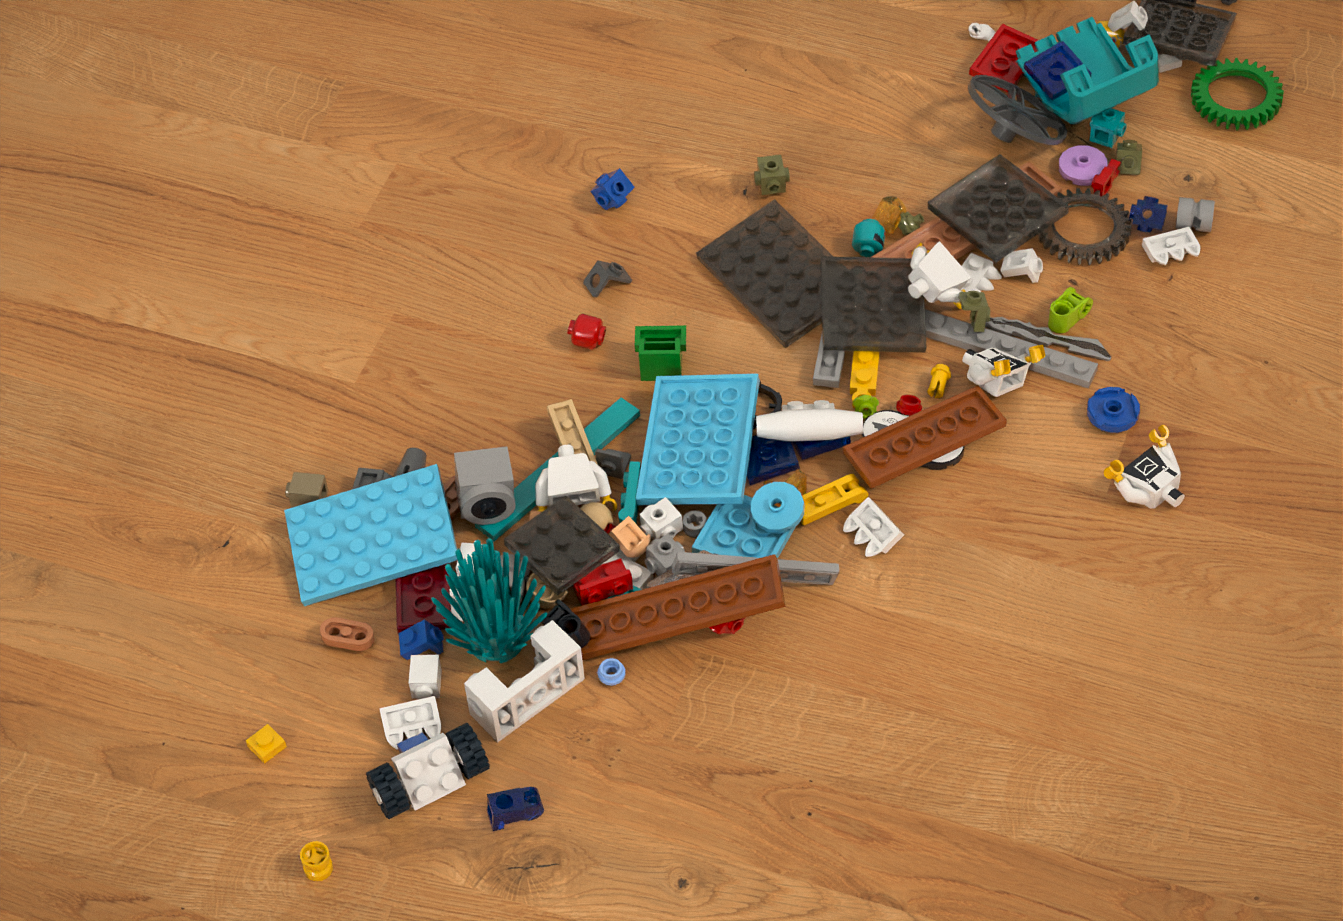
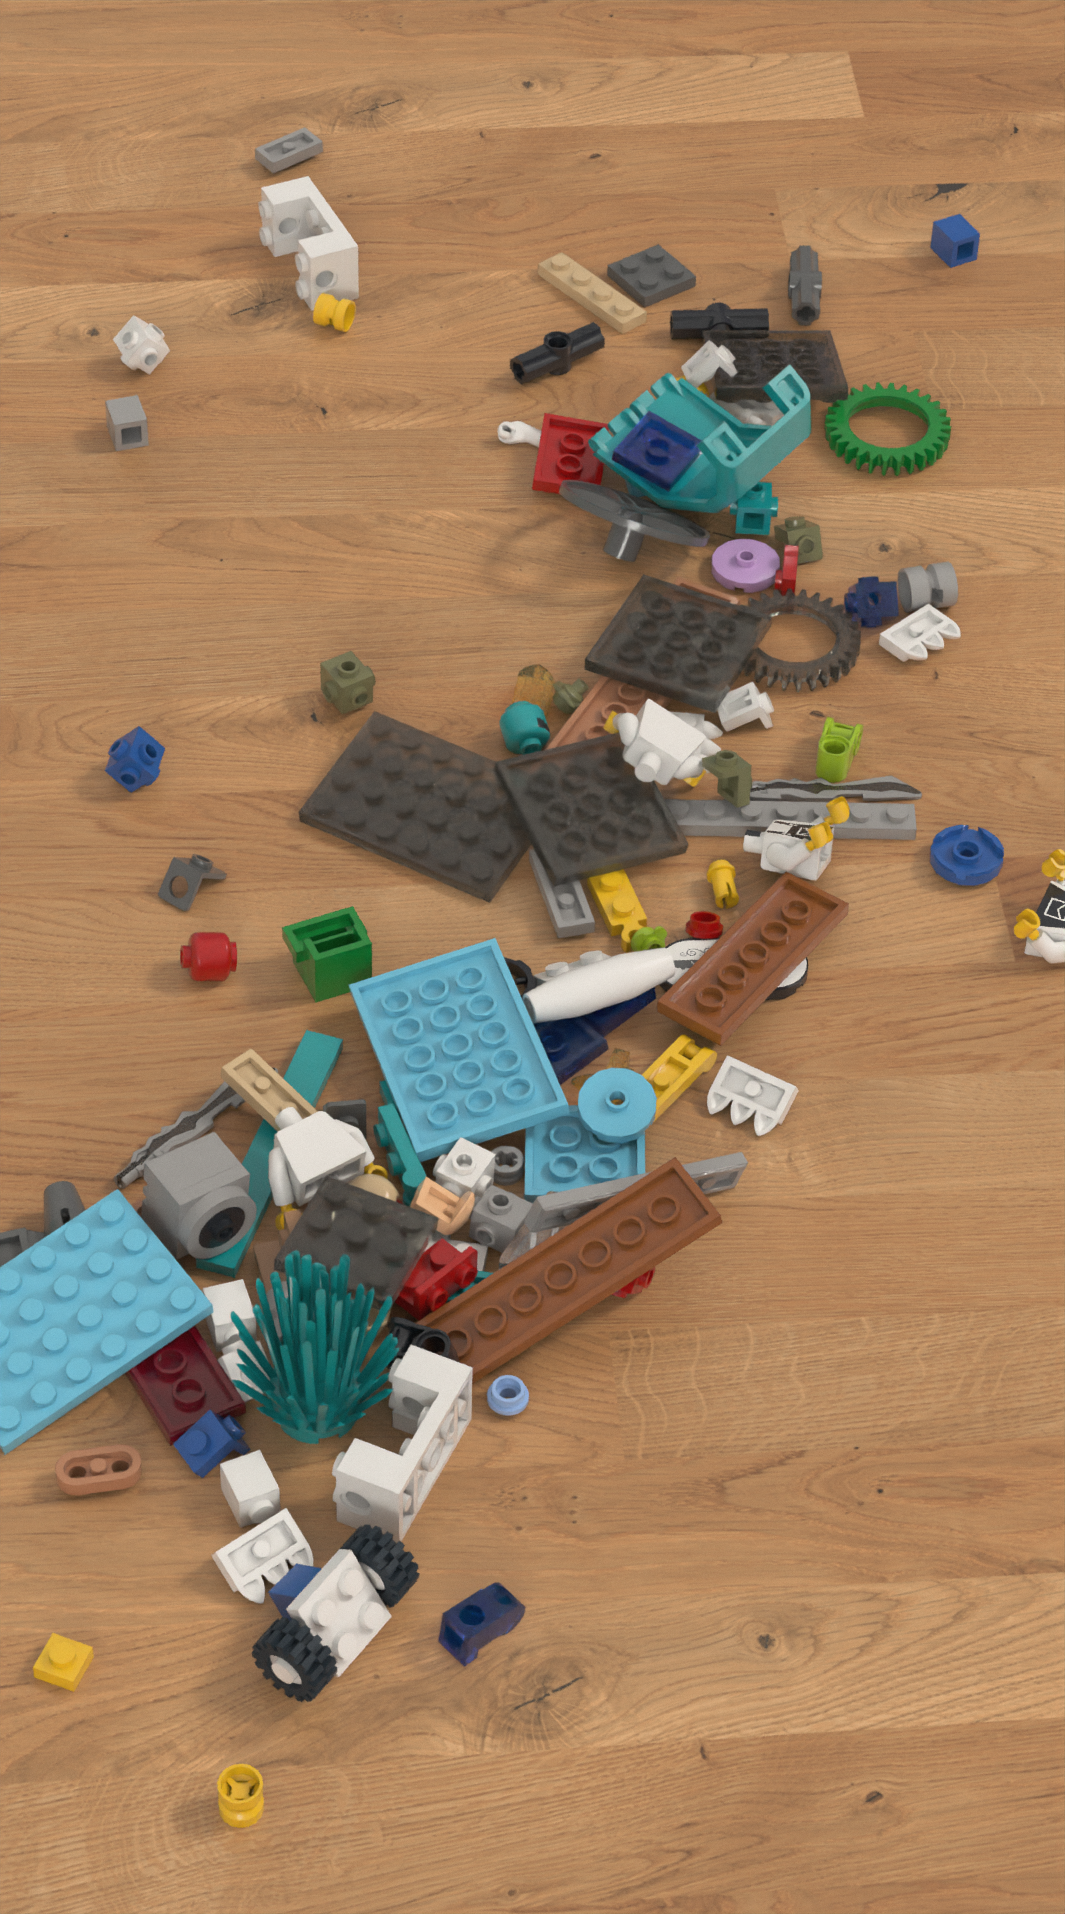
camera: 30 degrees left, 5 degrees down
(522, 435) = (185, 1130): none -> light grey sword

